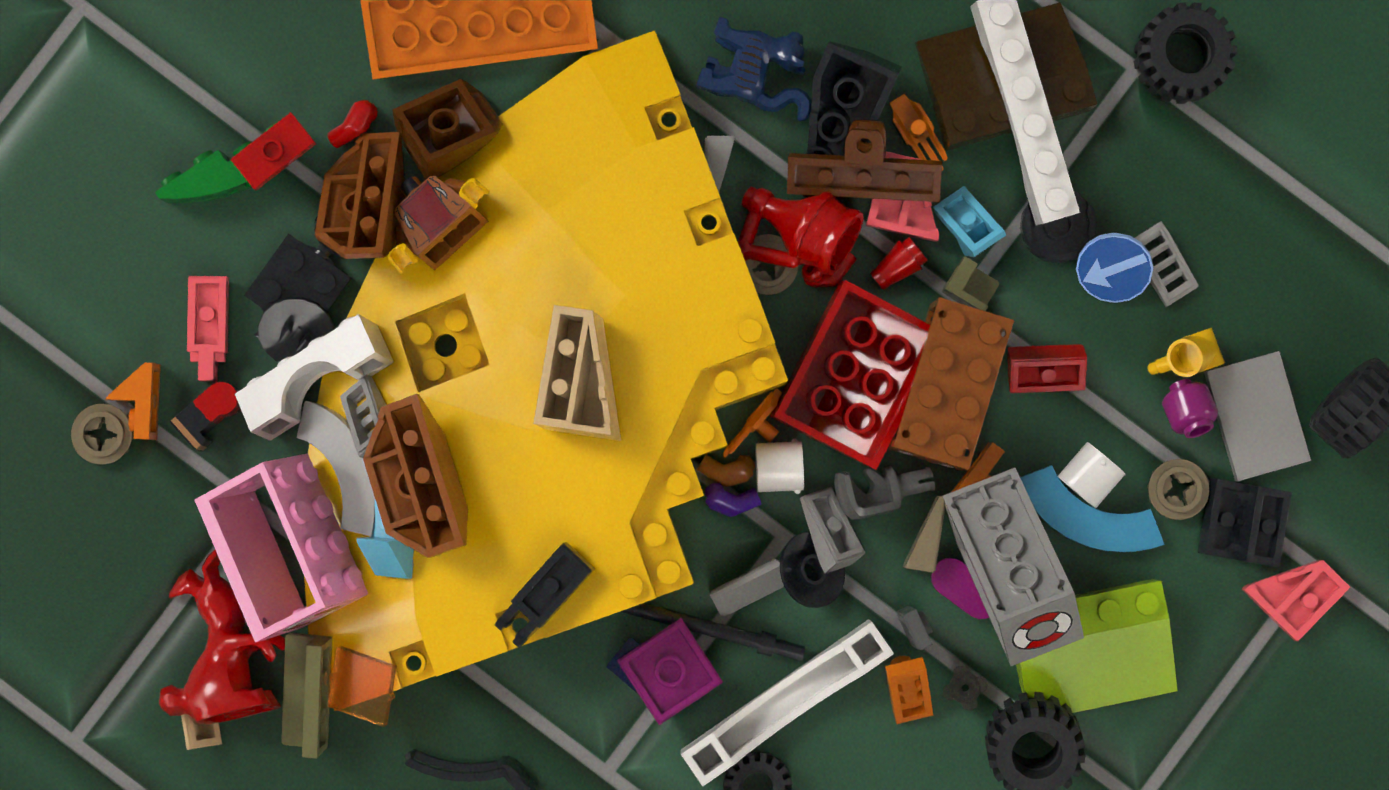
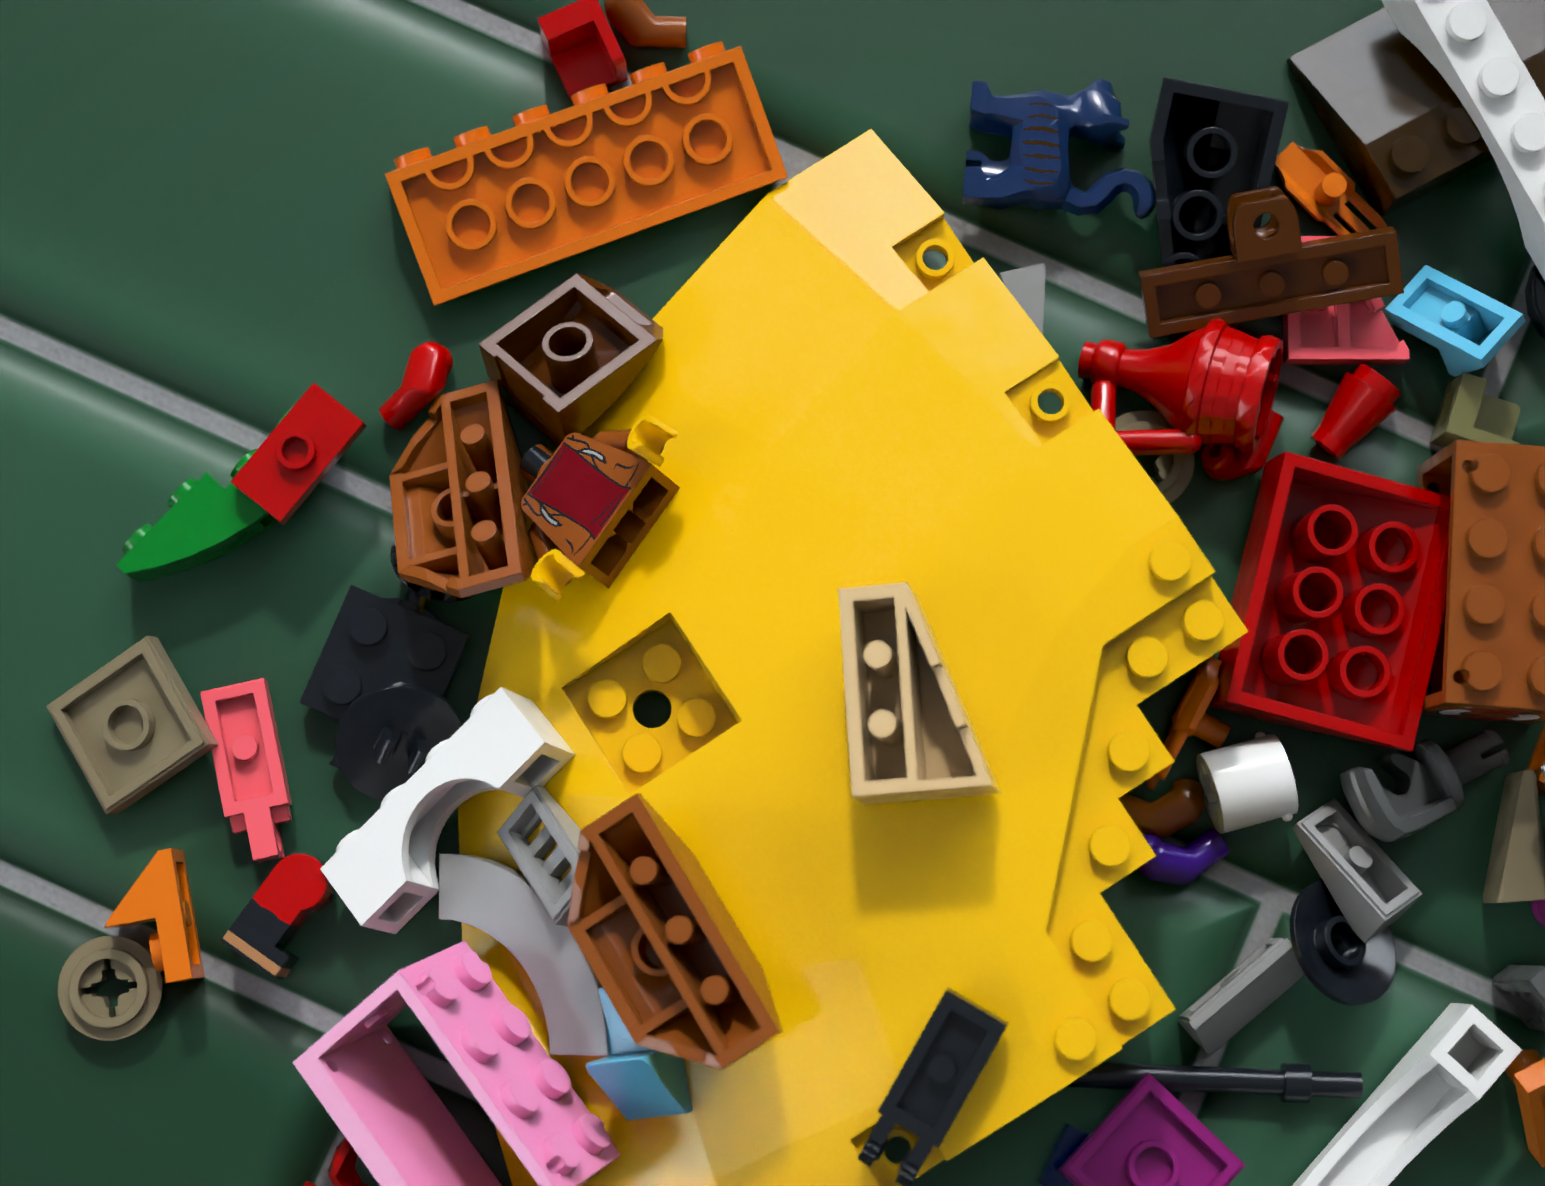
camera: 15 degrees left, 5 degrees down
(145, 286) = (132, 725): none -> dark tan tile

